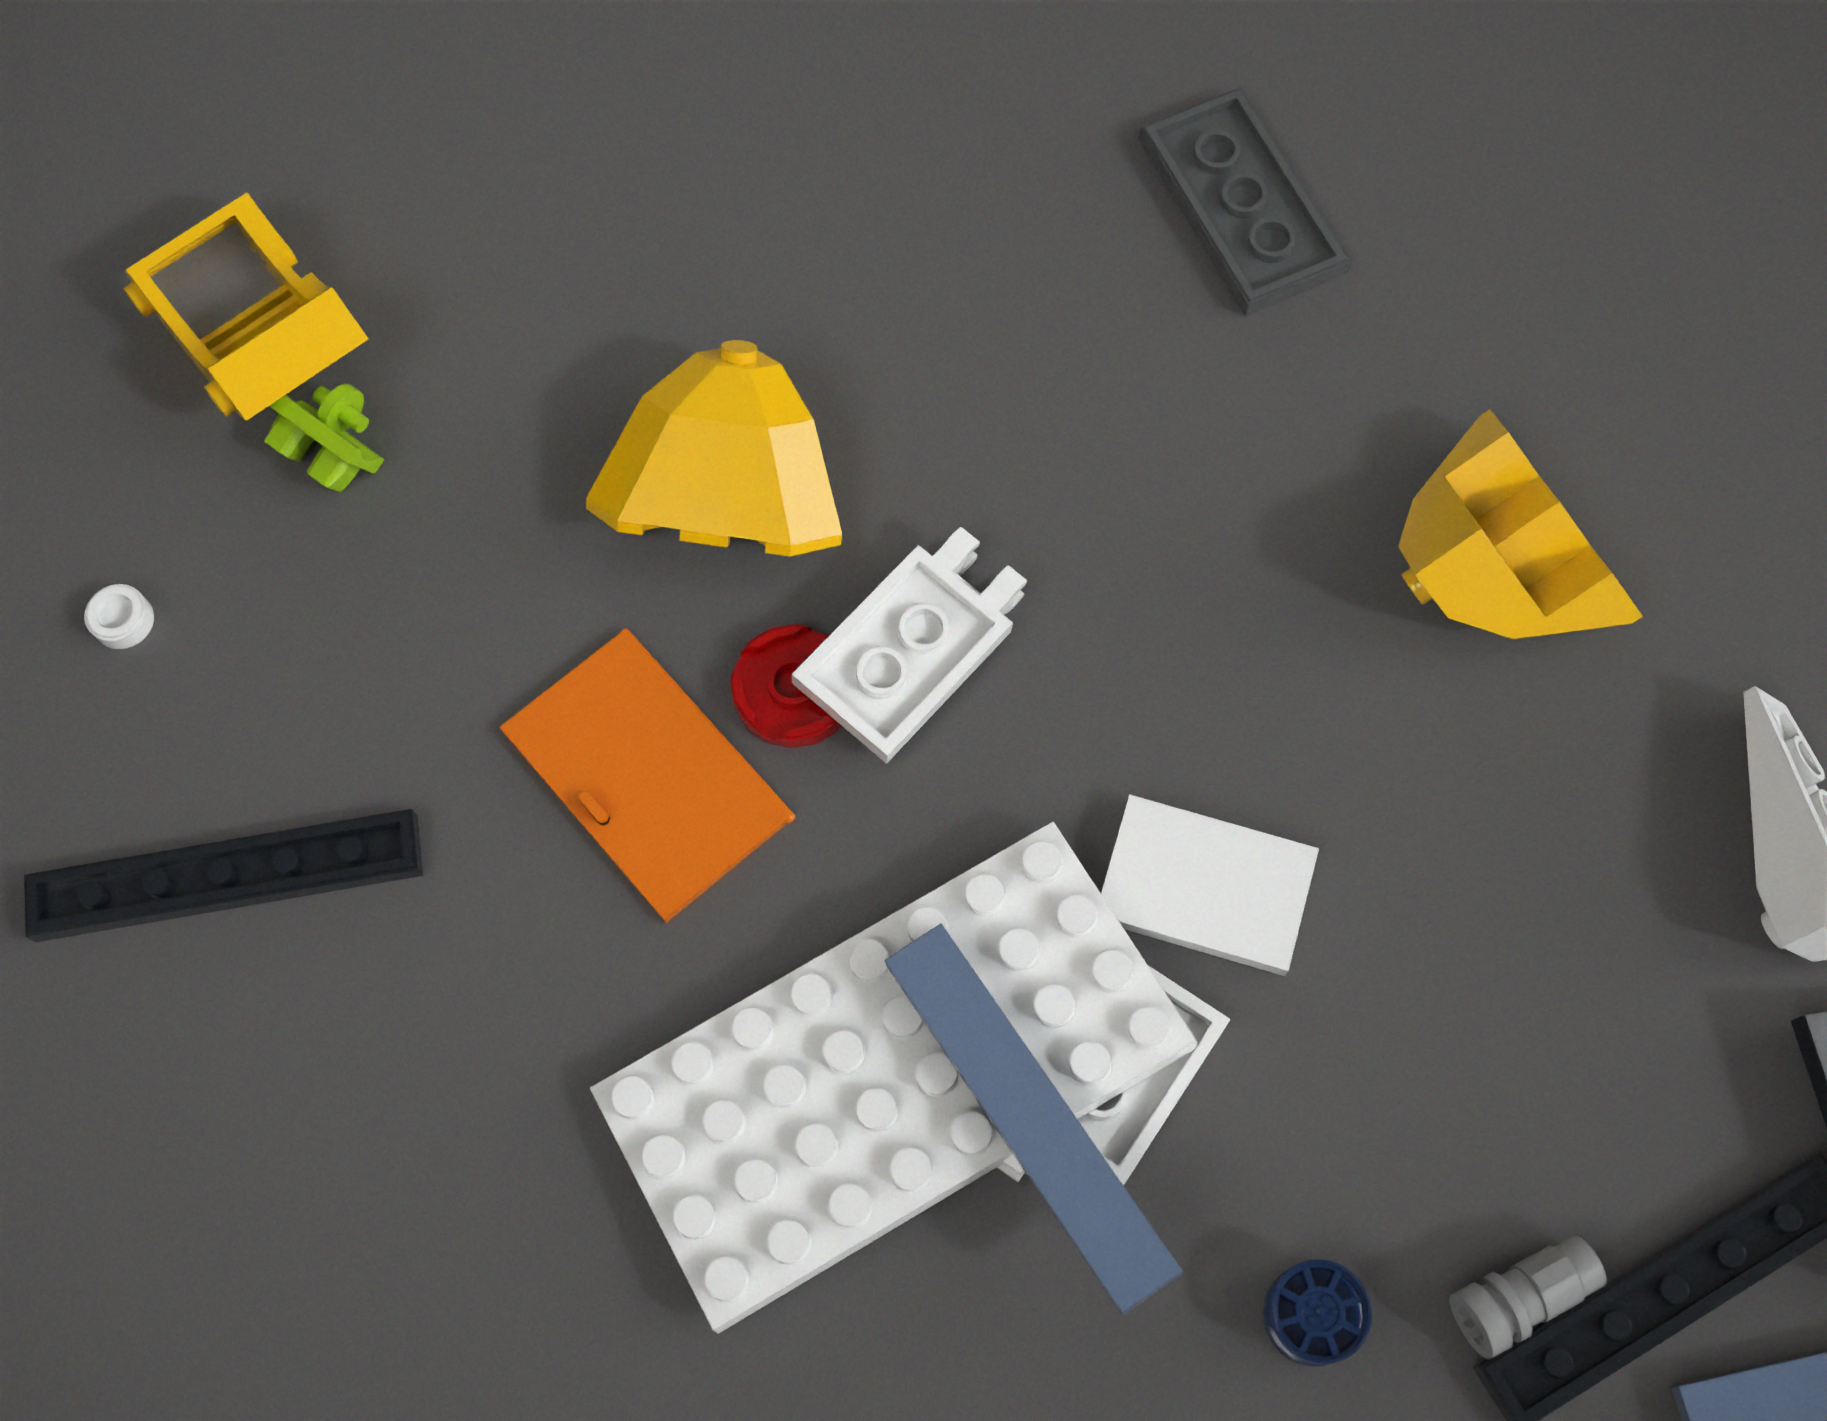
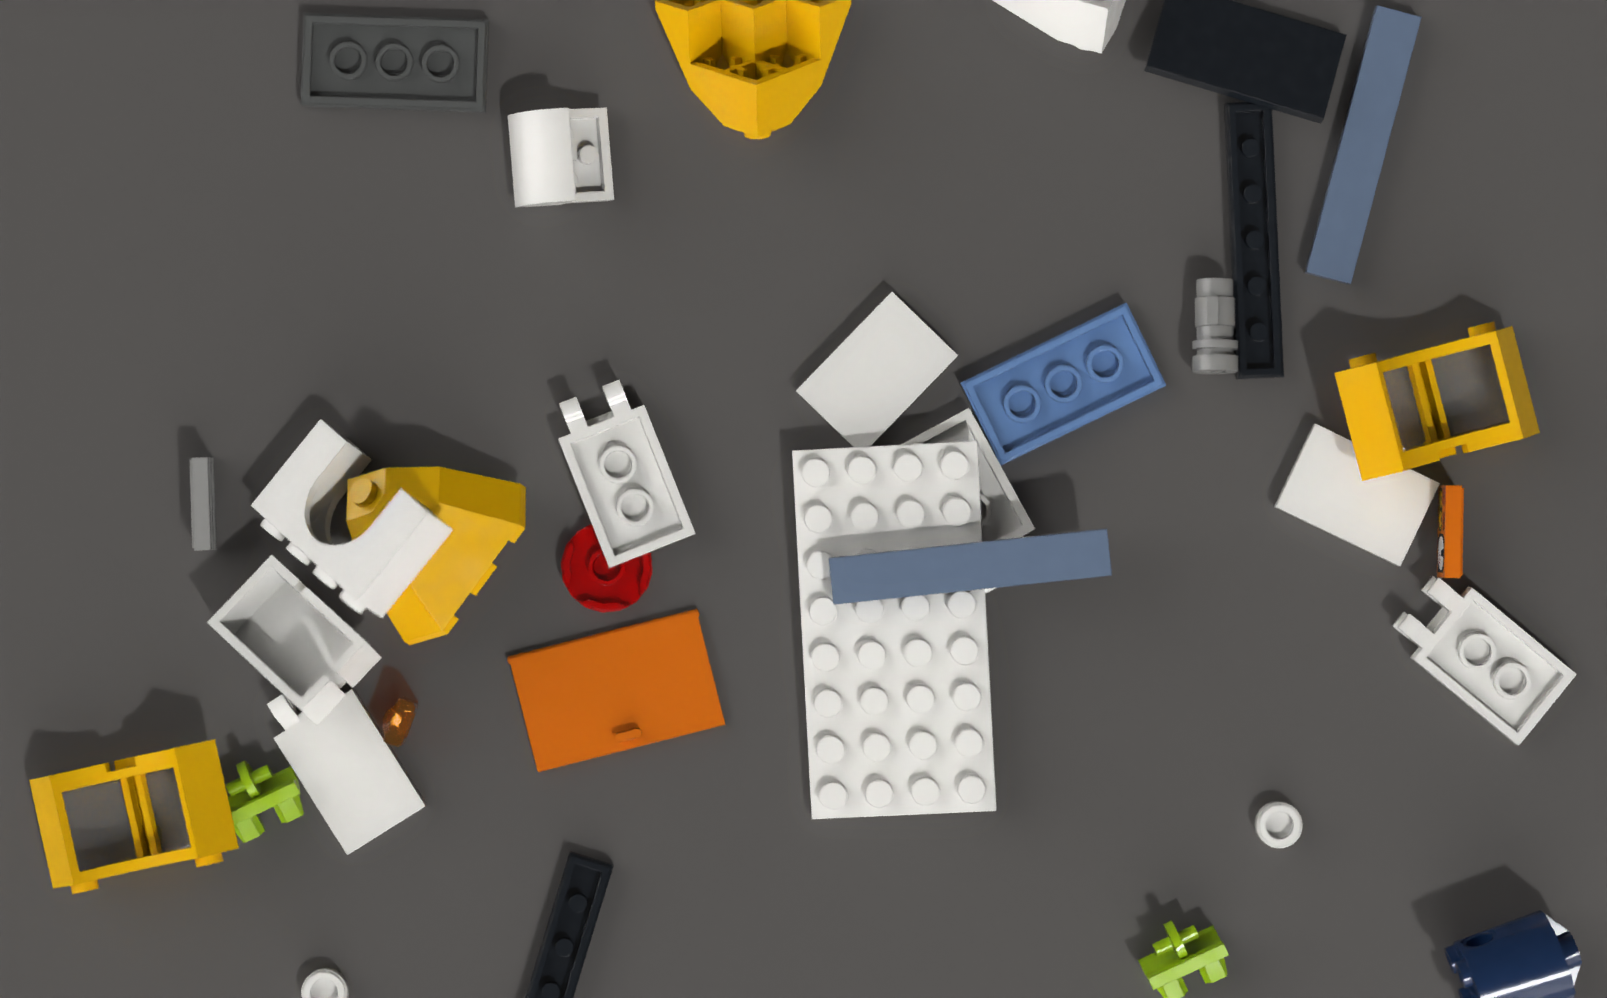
camera: 65 degrees left, 20 degrees up
(412, 508) = (347, 769): none -> white tile
(487, 539) = (399, 720): none -> clear orange tile
(524, 366) = (294, 639): none -> white piece
(643, 227) = (203, 503): none -> light grey tile
(663, 359) = (301, 506): none -> white arch
(1249, 399) = (560, 156): none -> white brick
(1317, 1313) = (1162, 455): dark blue wheel -> none
(1332, 1131) = (1063, 384): none -> medium blue tile

